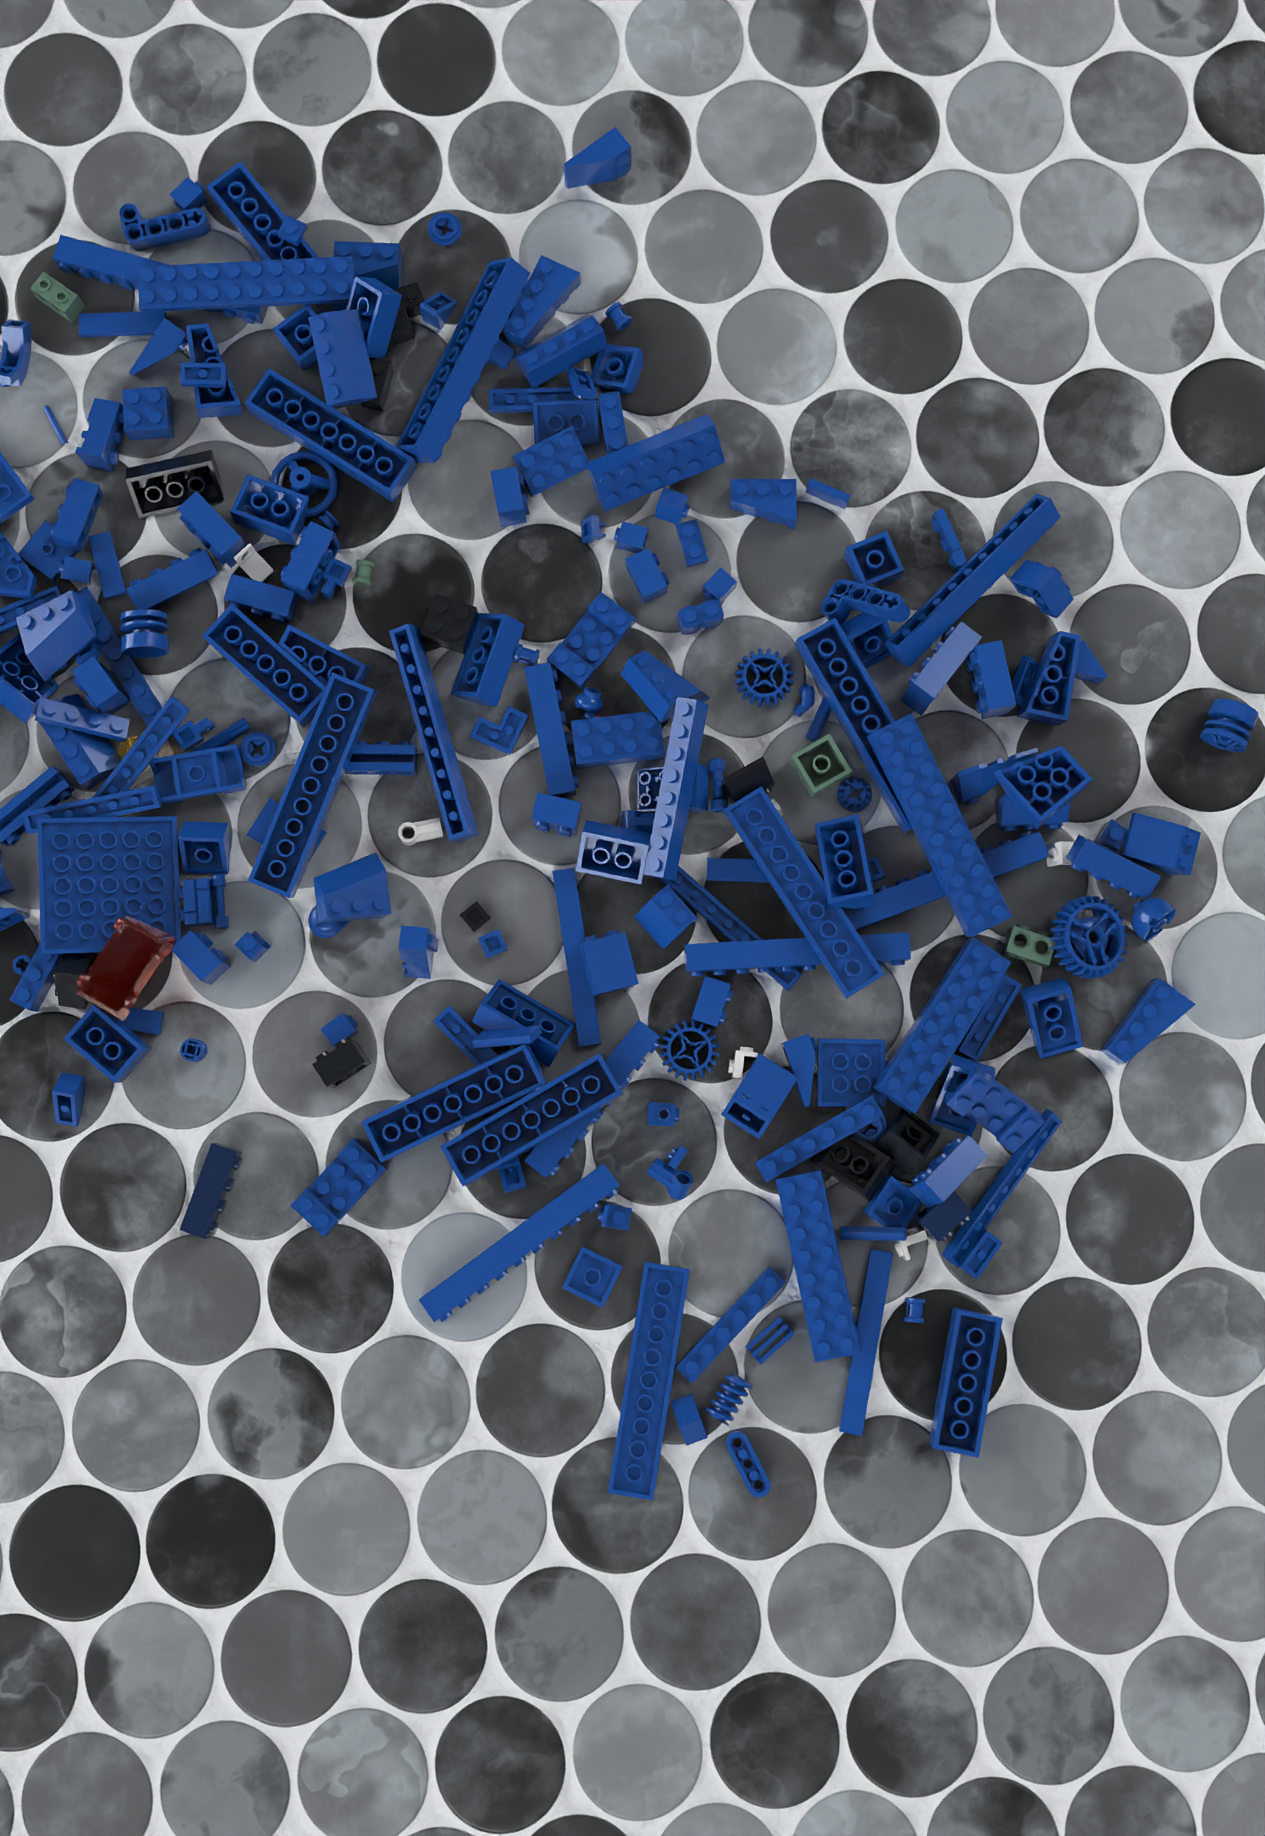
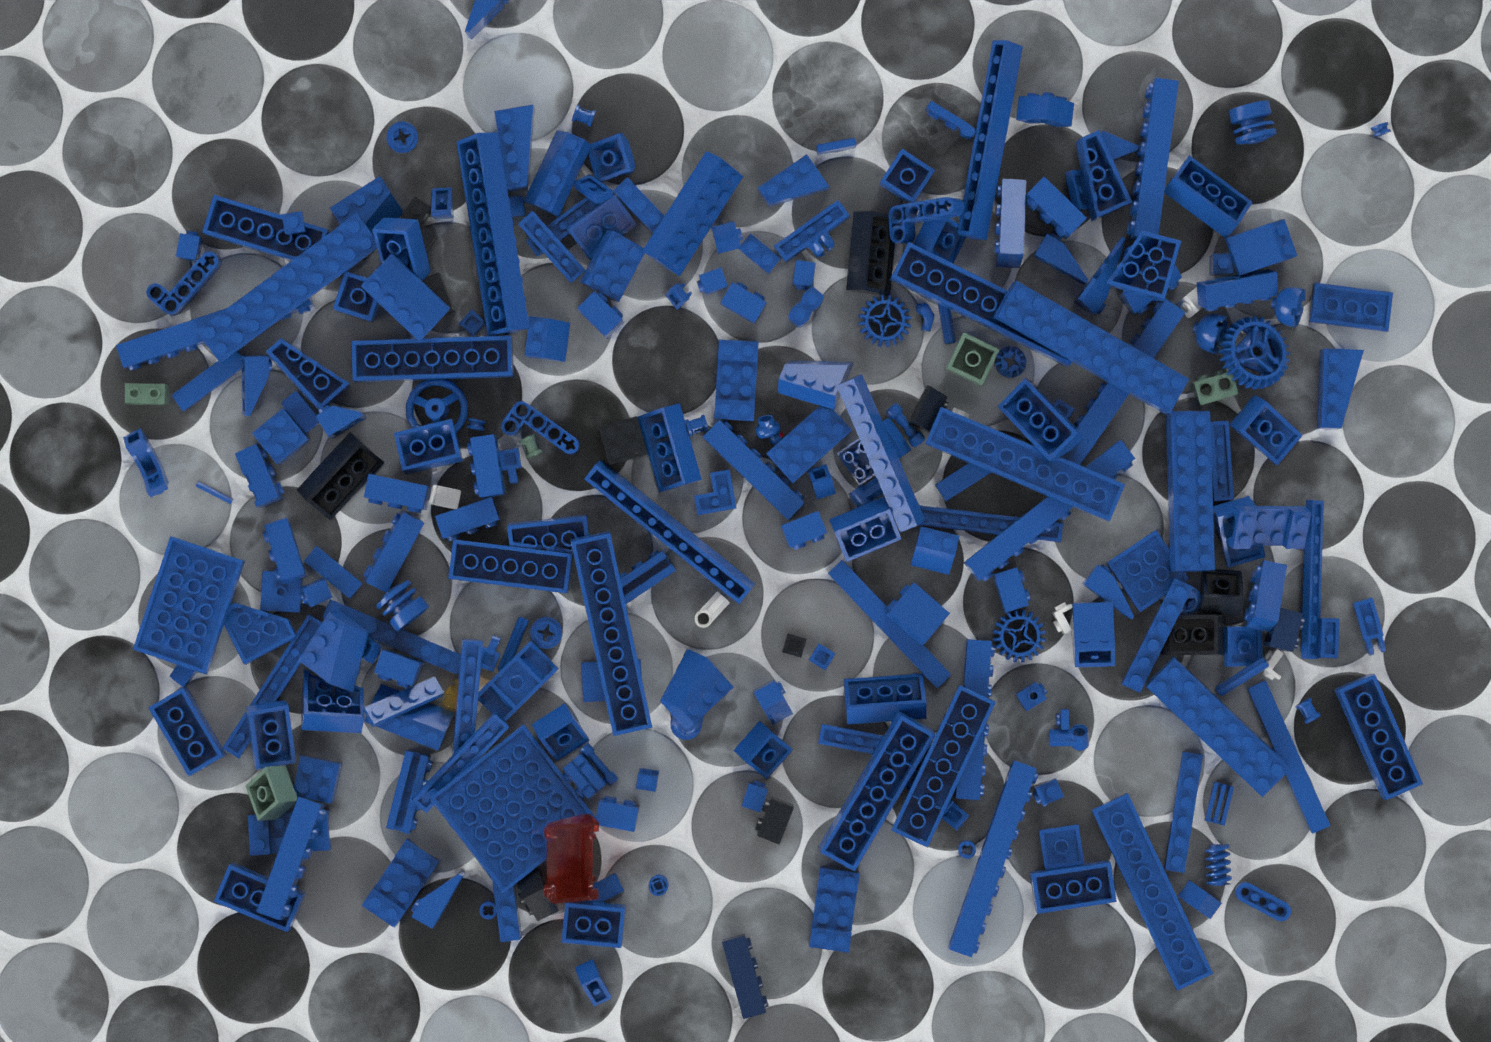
camera: 40 degrees left, 5 degrees up
(182, 406) = (300, 411): none -> blue tile
(203, 375) = (308, 381): blue plate -> none
(206, 431) = (338, 420): none -> blue slope
(378, 992) = (763, 750): none -> blue slope
(386, 566) = (544, 430): none -> blue beam
(390, 430) = (472, 323): none -> blue tile
(446, 488) = (547, 339): none -> blue slope
(498, 1223) = (967, 843): none -> blue bush
(507, 407) = (551, 246): none -> blue plate
(507, 1037) = (882, 718): blue tile -> none
(576, 1322) = (1073, 886): none -> blue brick
(604, 782) = (821, 481): none -> blue brick
(753, 557) = (813, 233): none -> blue plate
(792, 609) = (870, 254): none -> black slope
(963, 726) = (1056, 255): none -> blue slope
(1028, 1268) = (1369, 624): none -> blue hinge
(1060, 889) = (1209, 332): none -> blue cylinder
(1118, 690) = (1153, 156): none -> blue brick
(1141, 764) = (1207, 197): none -> blue brick
(1207, 959) = (1350, 307): none -> blue tile

